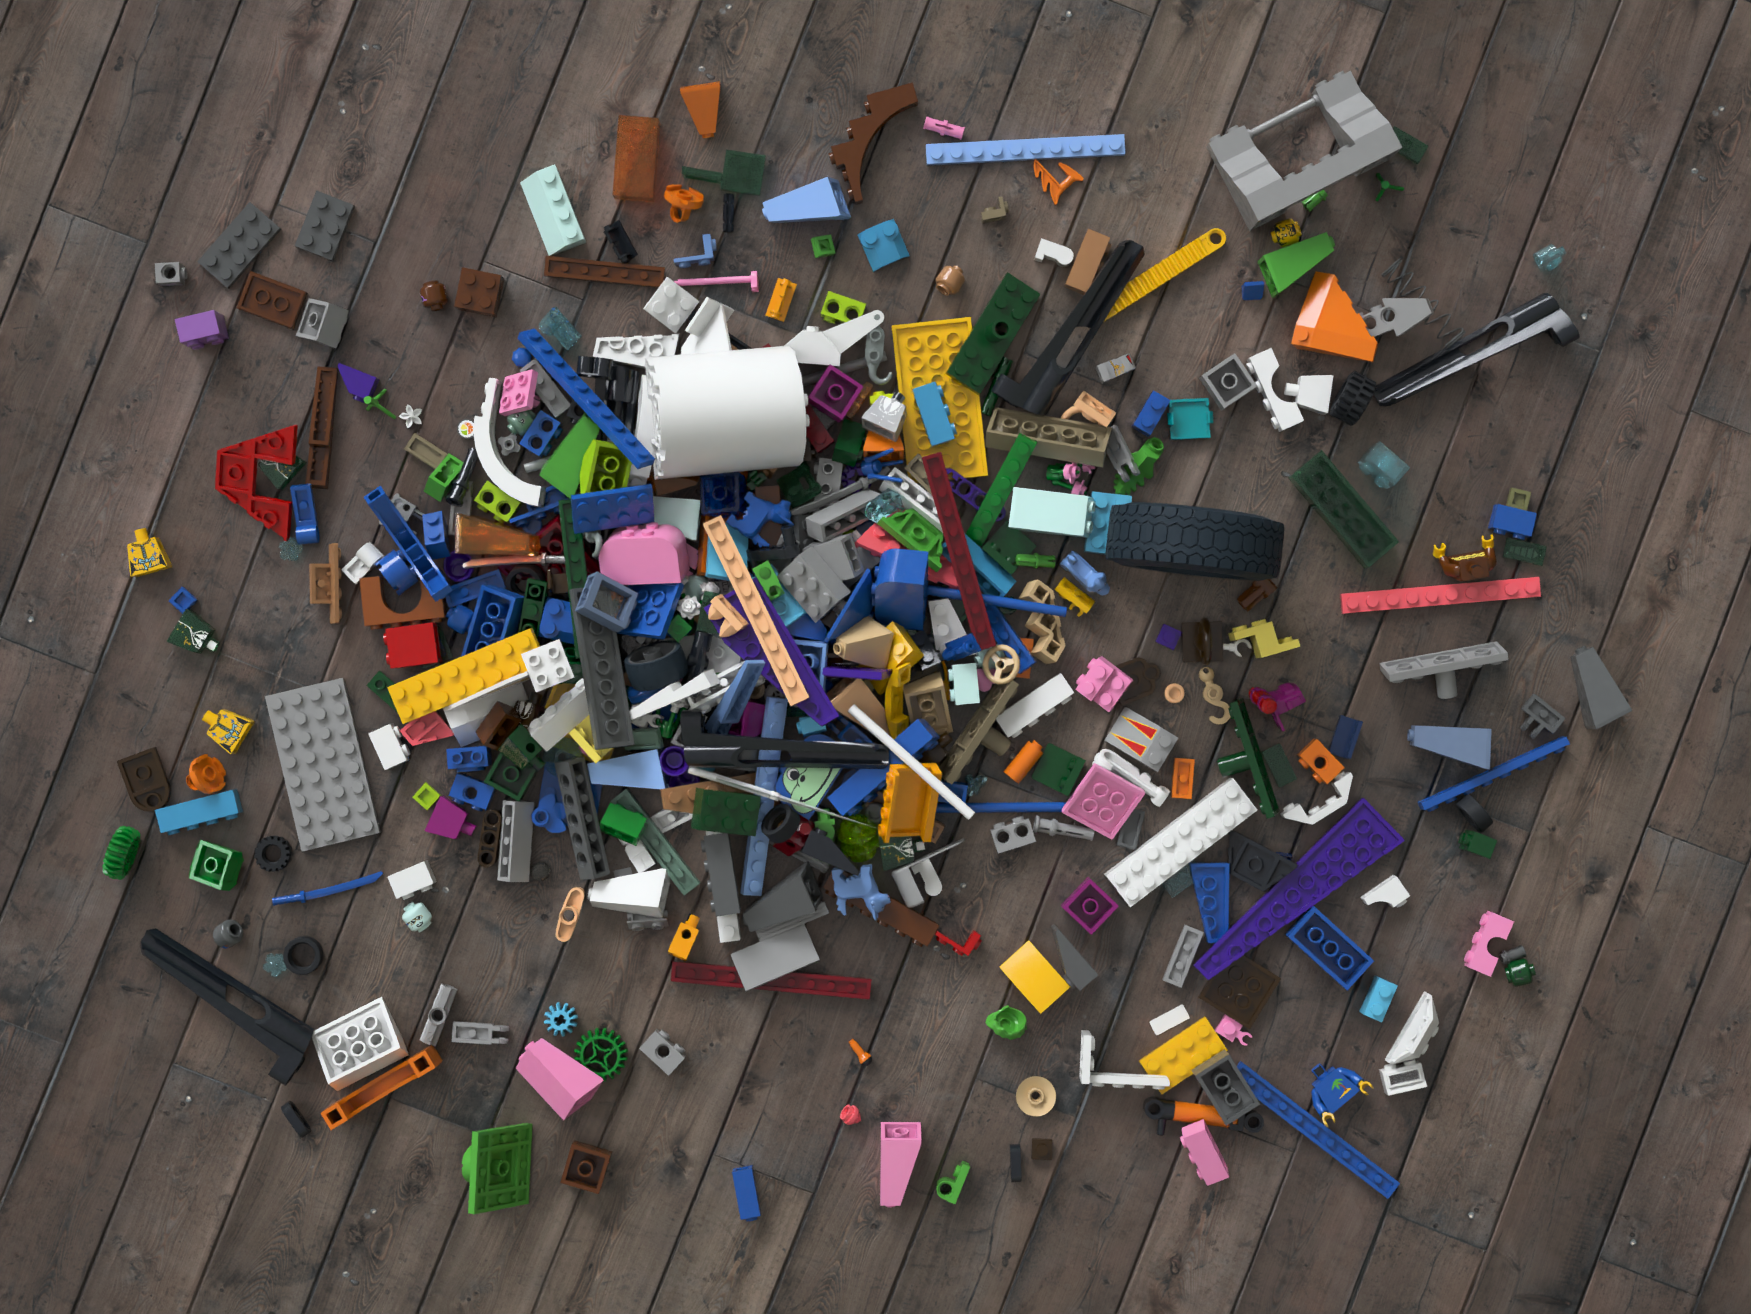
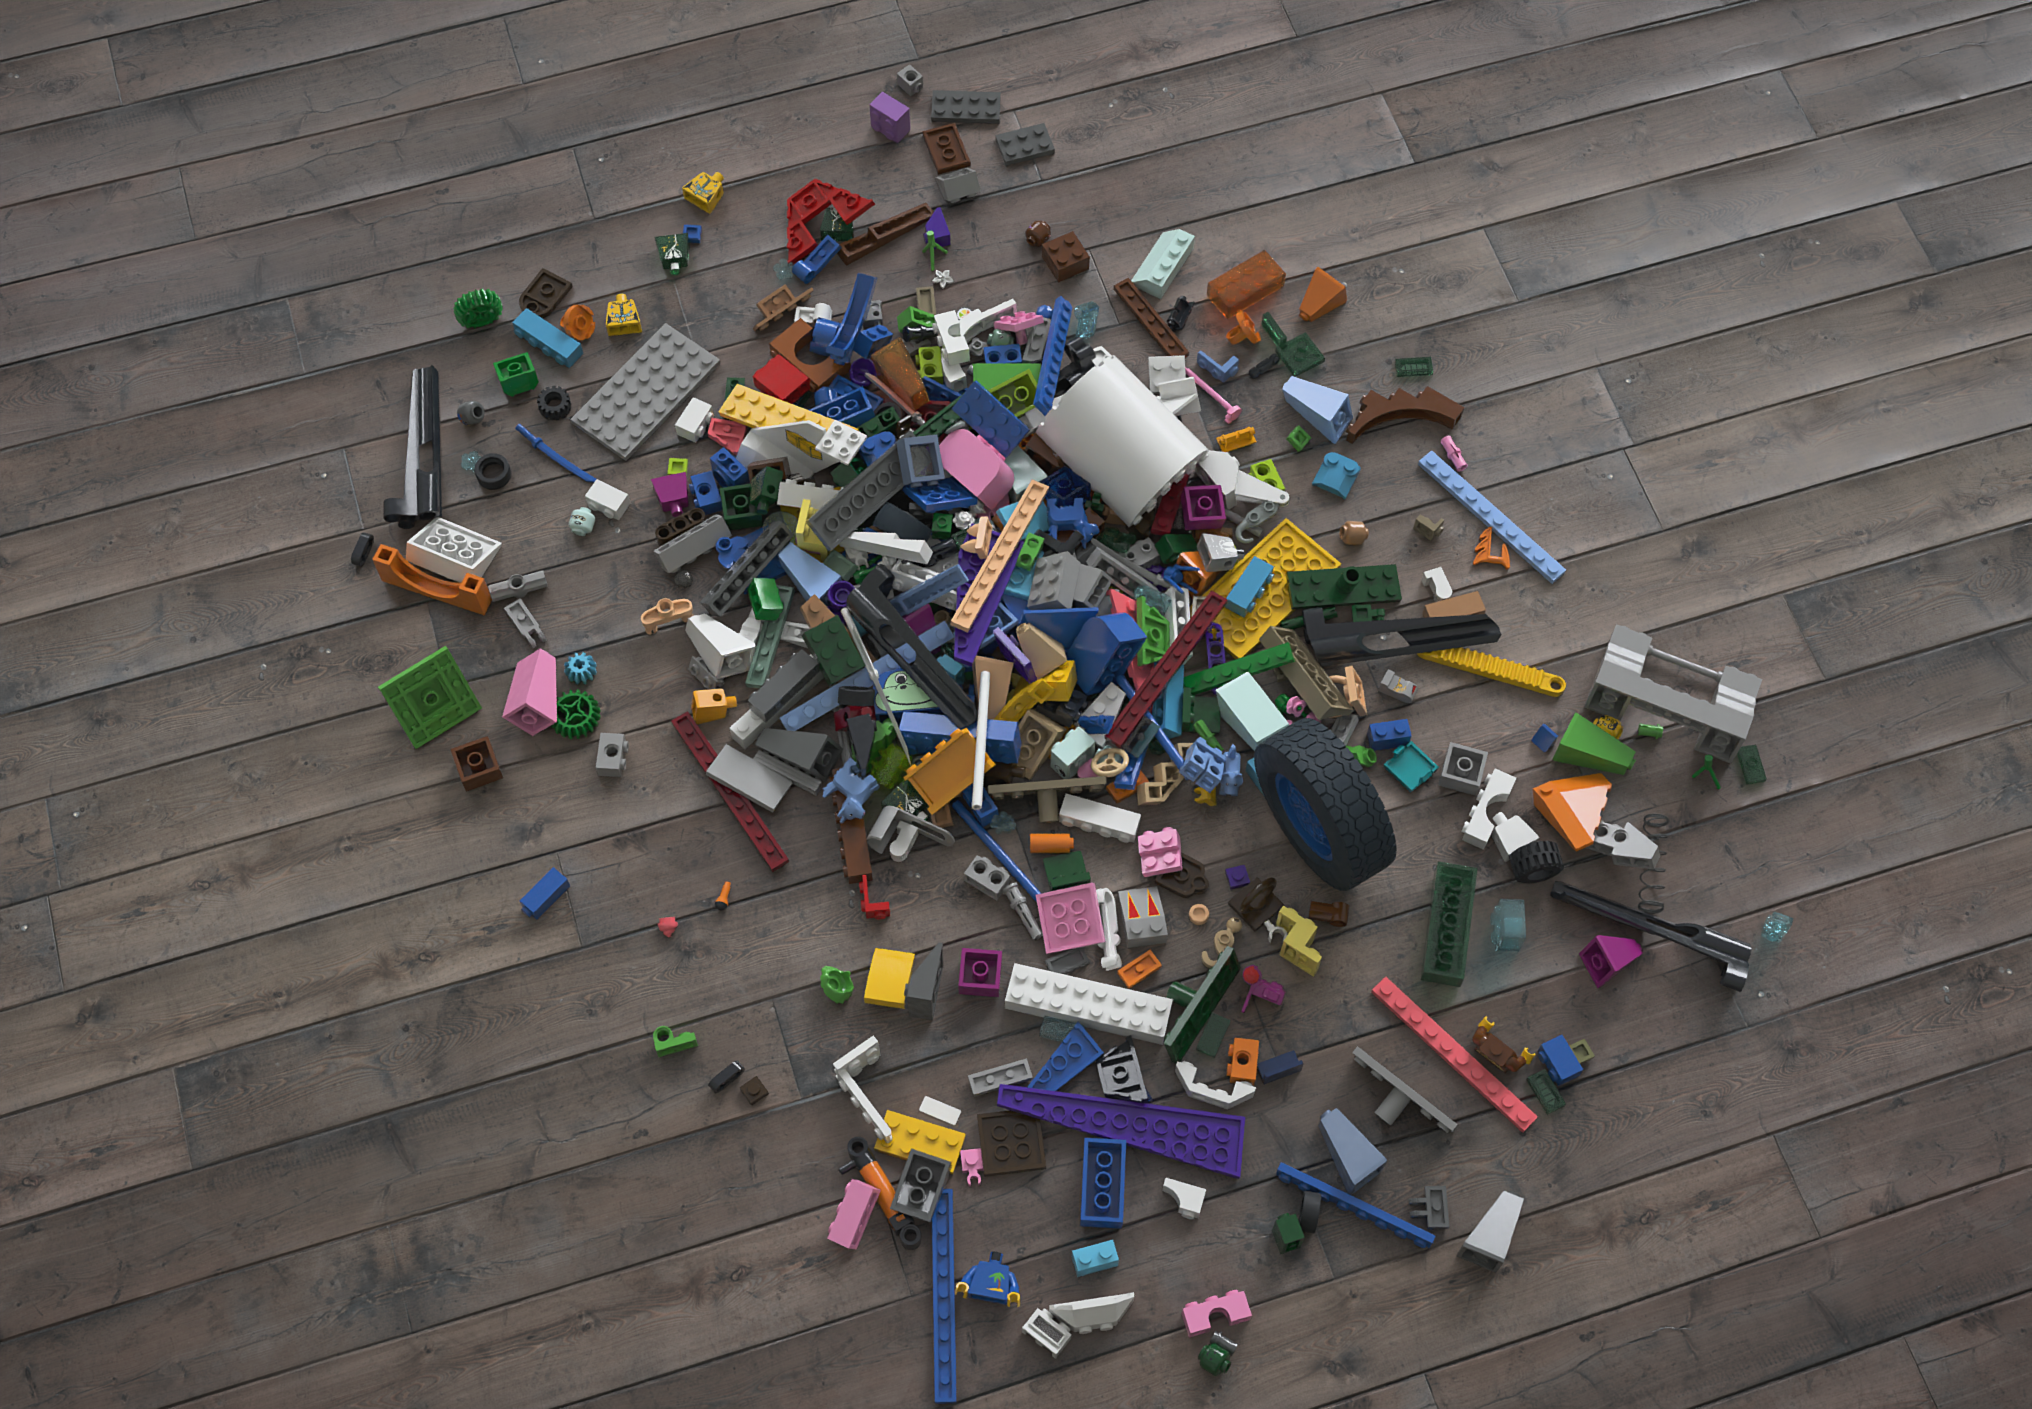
camera: 50 degrees right, 25 degrees down
(508, 476) = (954, 348): none -> white arch
(832, 84) = (1413, 366): none -> clear green tile
(898, 1155) = (657, 981): bright pink slope -> none
(999, 619) = (1141, 737): none -> clear smoke slope
(1029, 337) = (1365, 613): none -> dark green plate
(1040, 1105) = (794, 1041): tan dish -> none
(1066, 593) = (1203, 761): none -> medium blue hips
(1471, 409) = (1608, 957): none -> magenta slope

